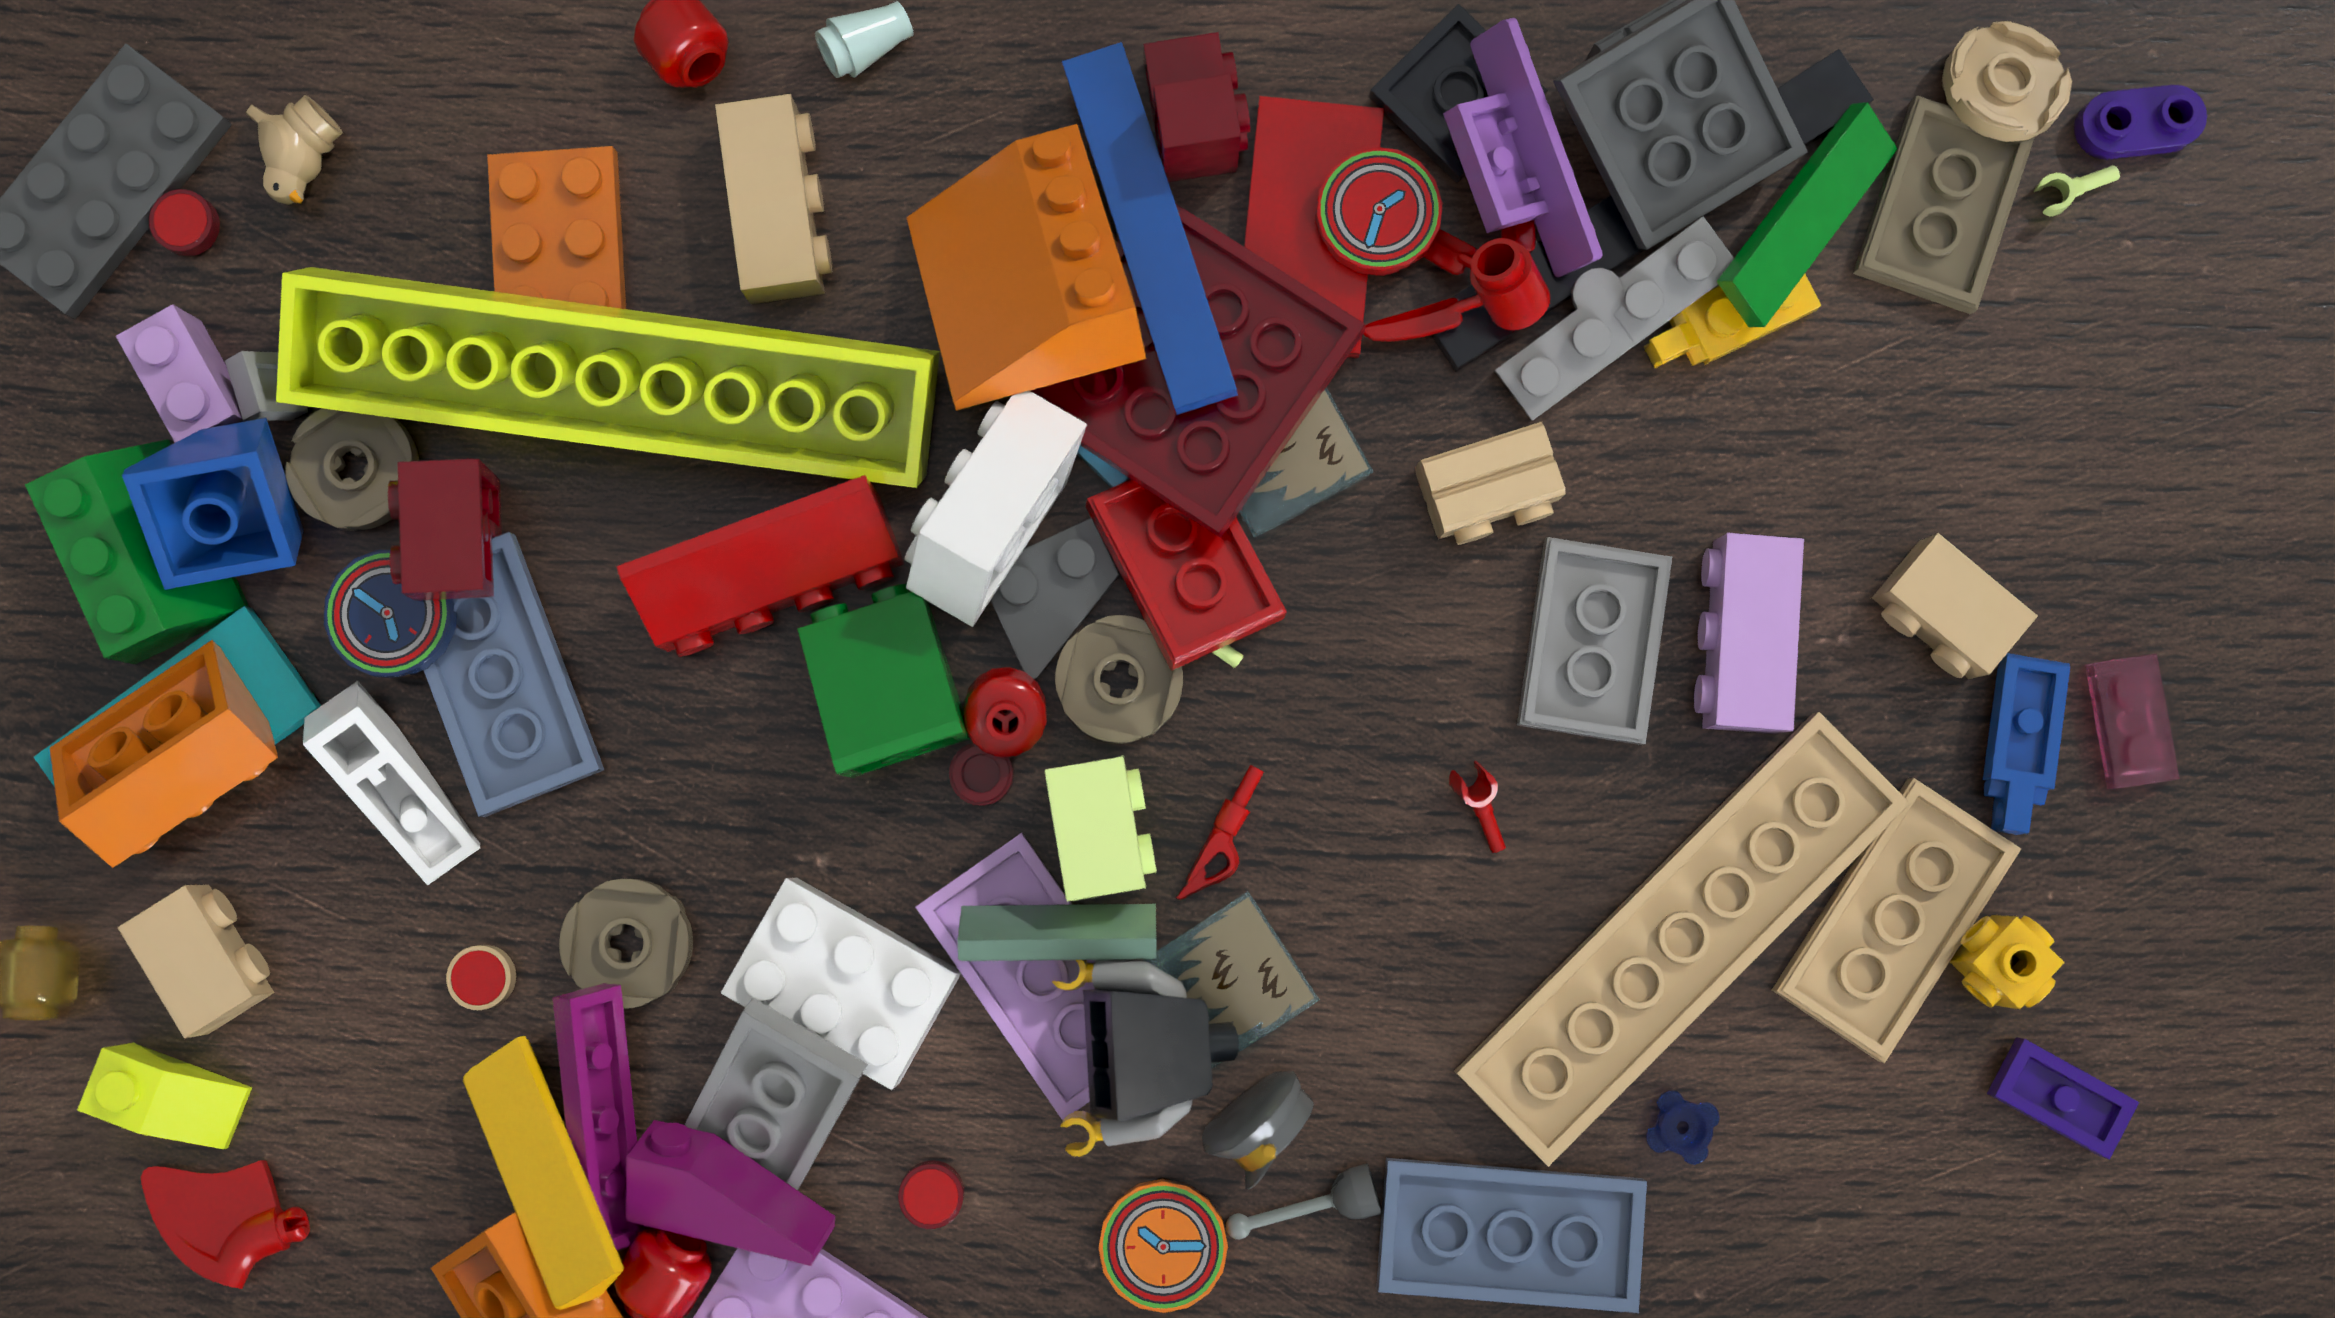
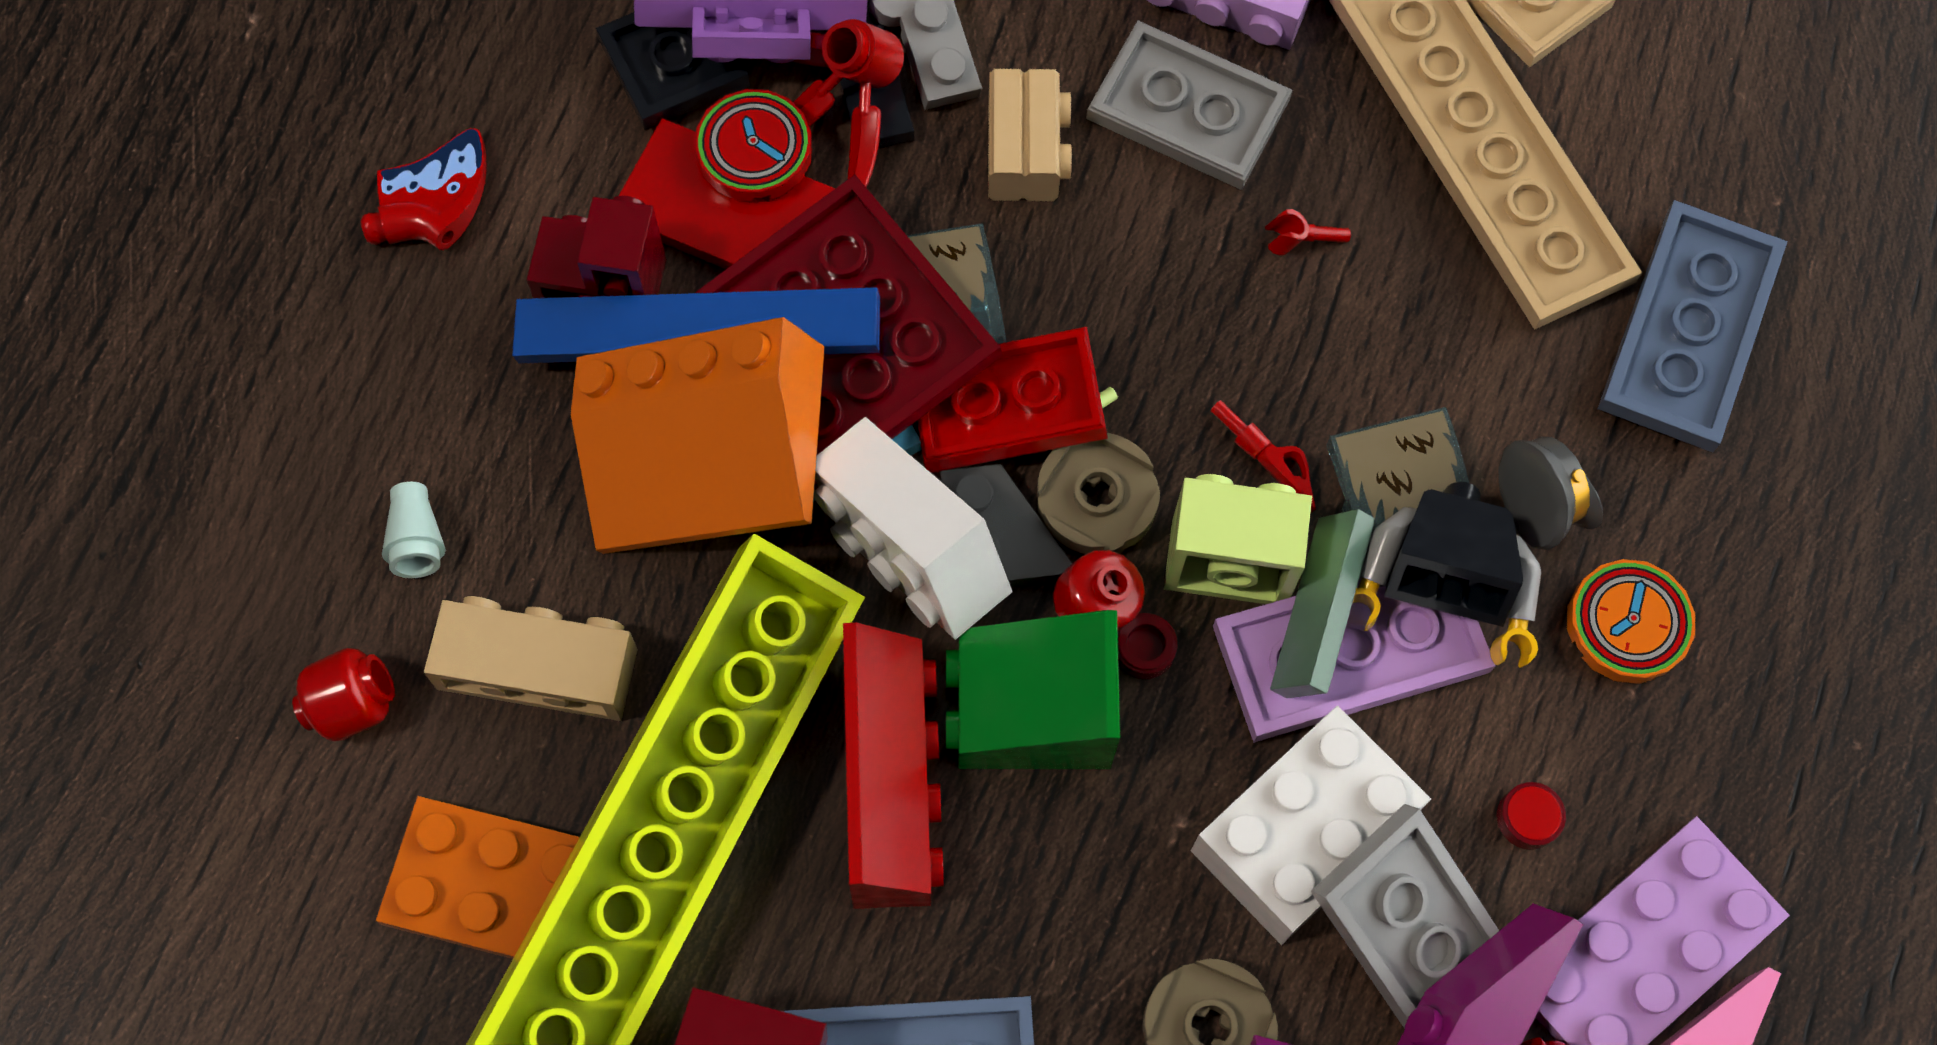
camera: 70 degrees left, 15 degrees down
(1351, 1195) = (1624, 441): hinge -> none
(1700, 1122) = (1641, 153): clear blue plate -> none

